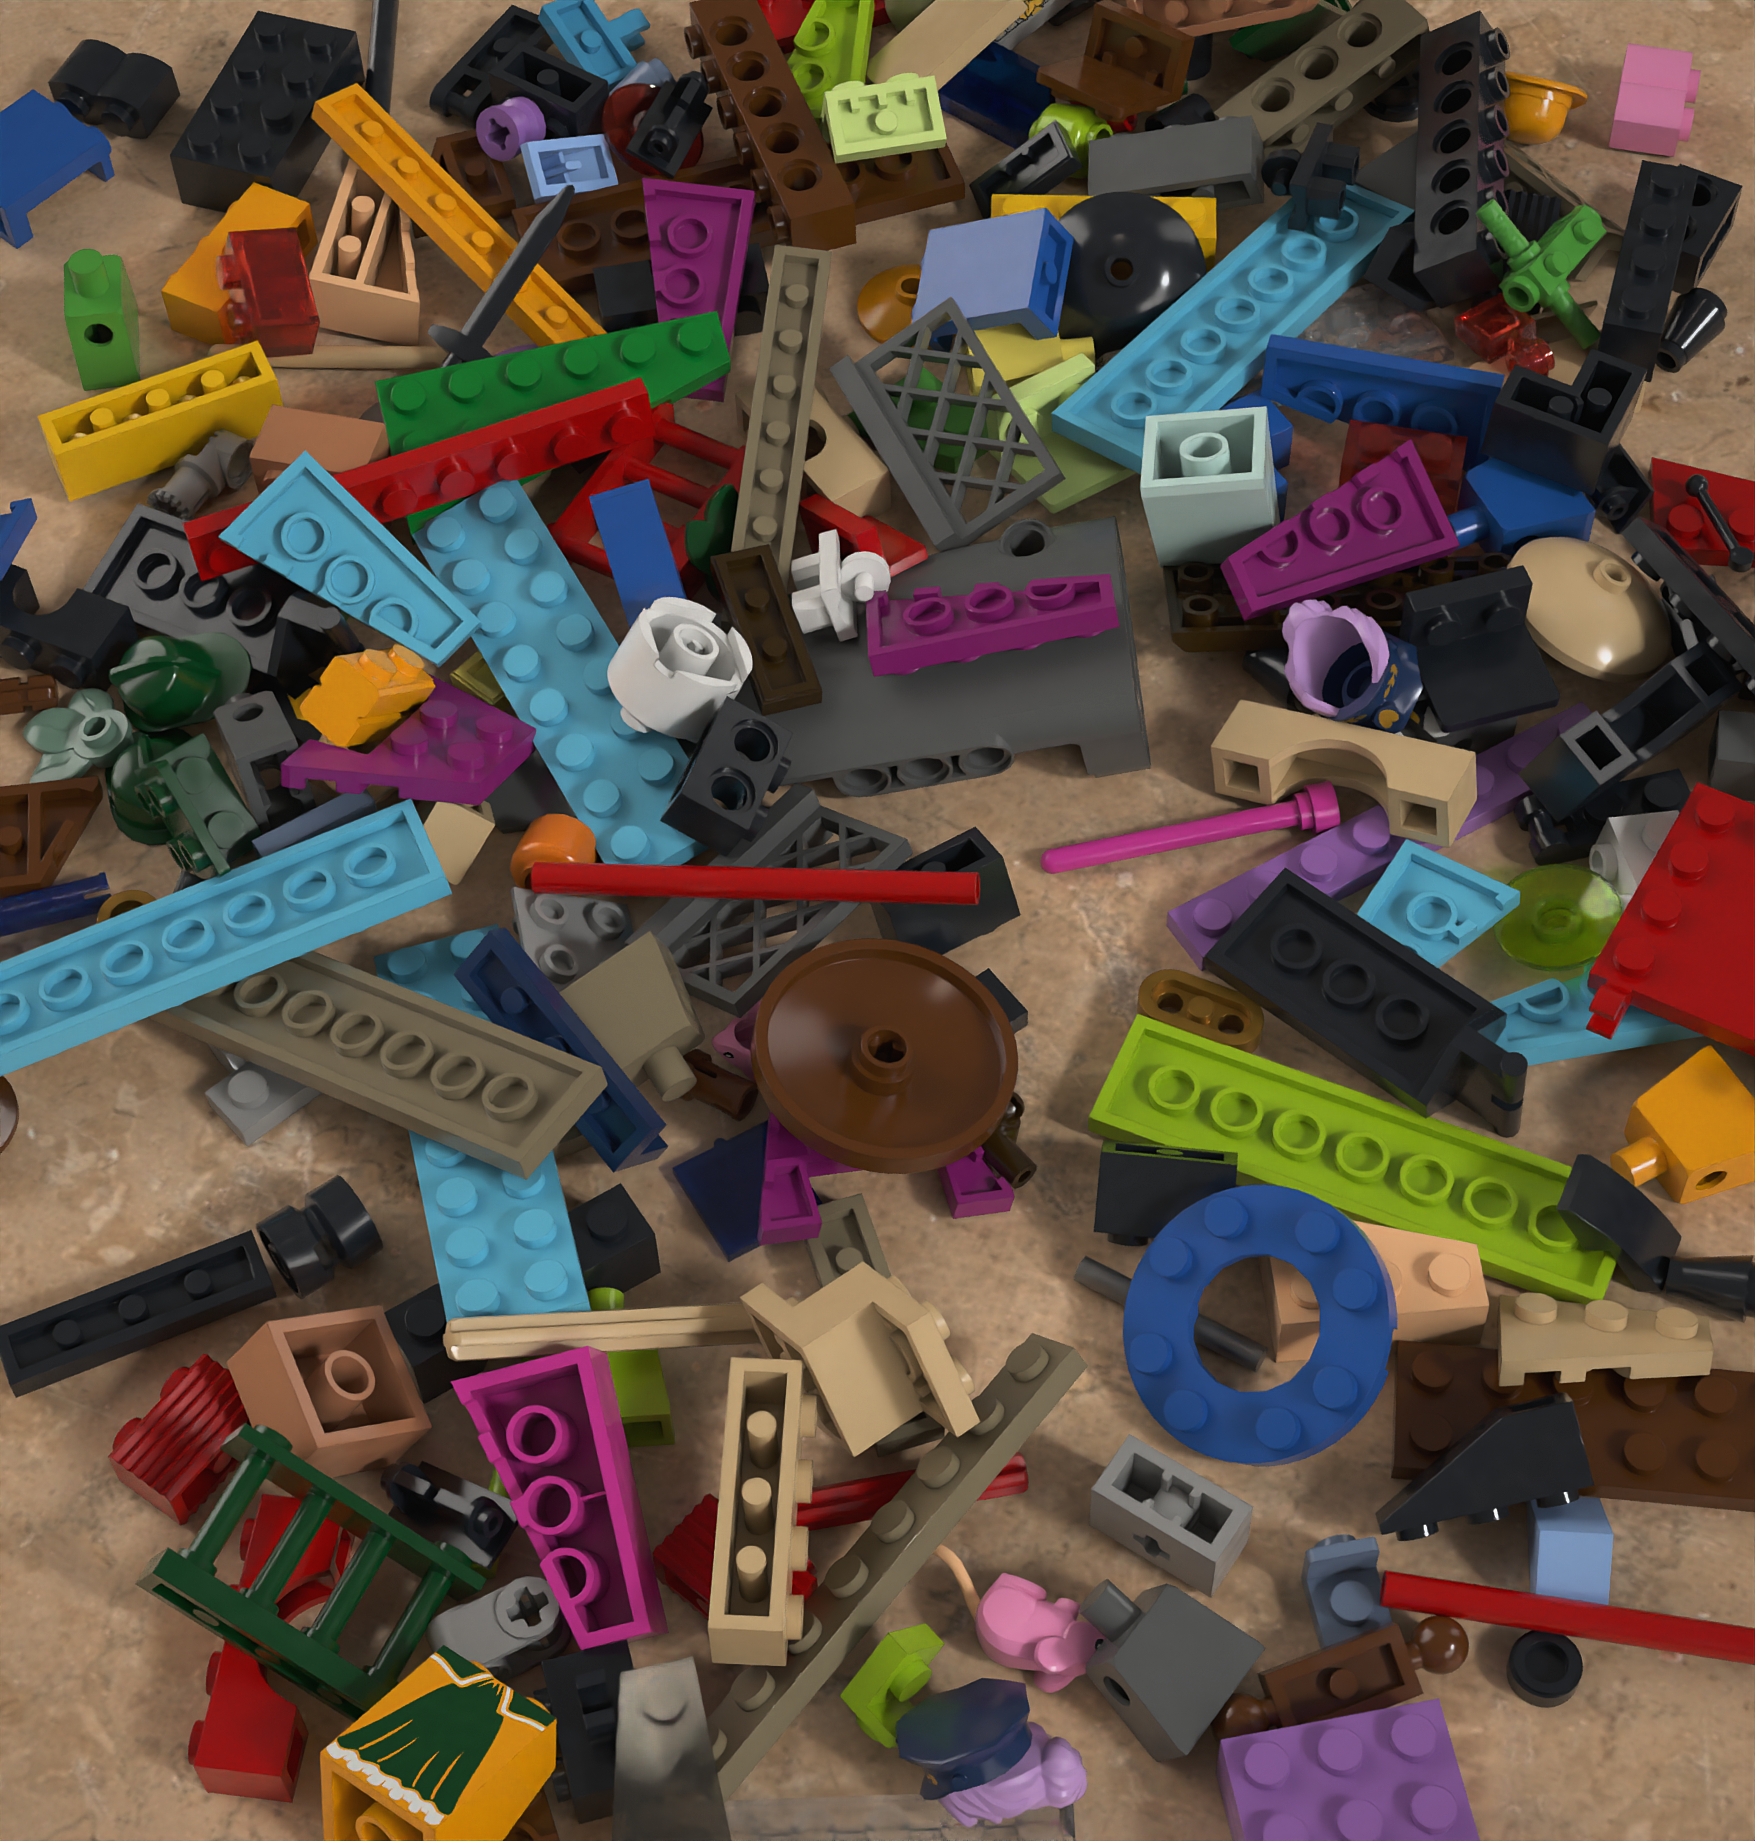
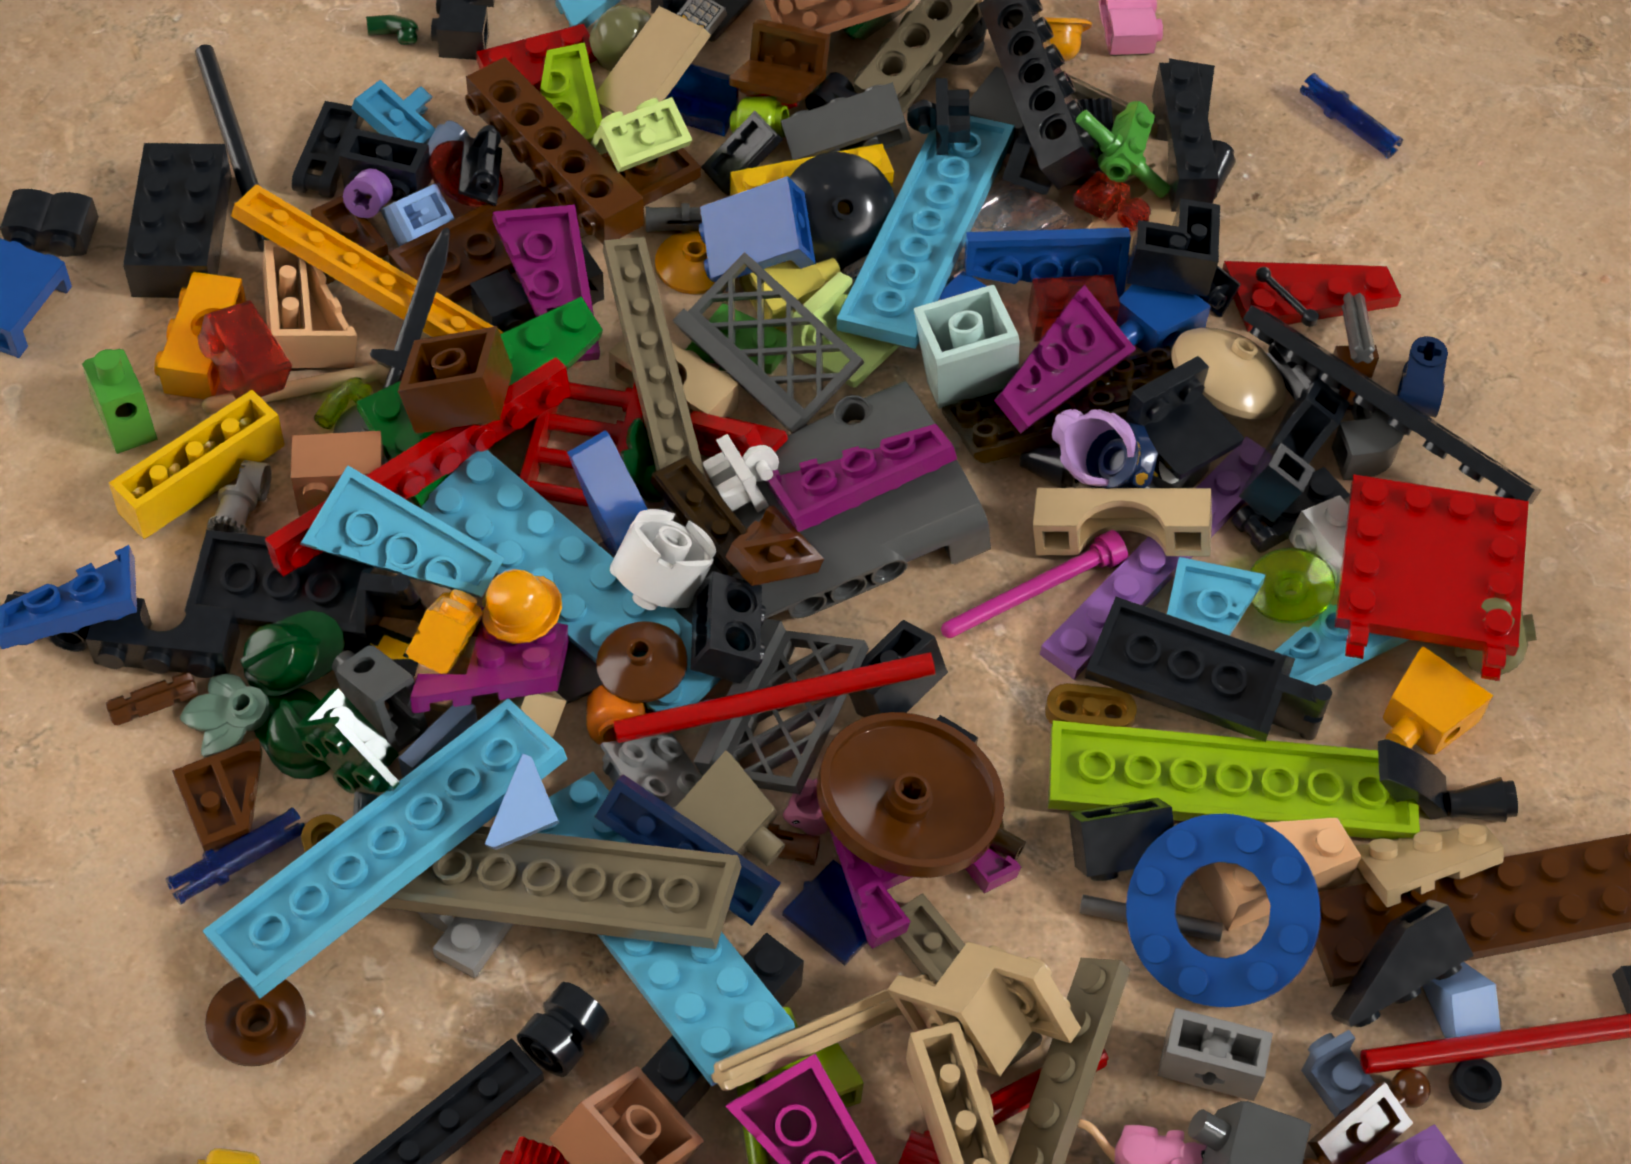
camera: 25 degrees left, 0 degrees up
(359, 936) = (523, 809): none -> light blue slope
(363, 392) = (338, 400): none -> clear neon green arm
(474, 685) = (521, 606): none -> light orange hat
(489, 375) = (456, 380): none -> reddish brown brick
(610, 813) = (647, 676): none -> reddish brown dish
(826, 692) = (773, 551): none -> reddish brown wing
(895, 242) = (673, 218): none -> dark grey pin

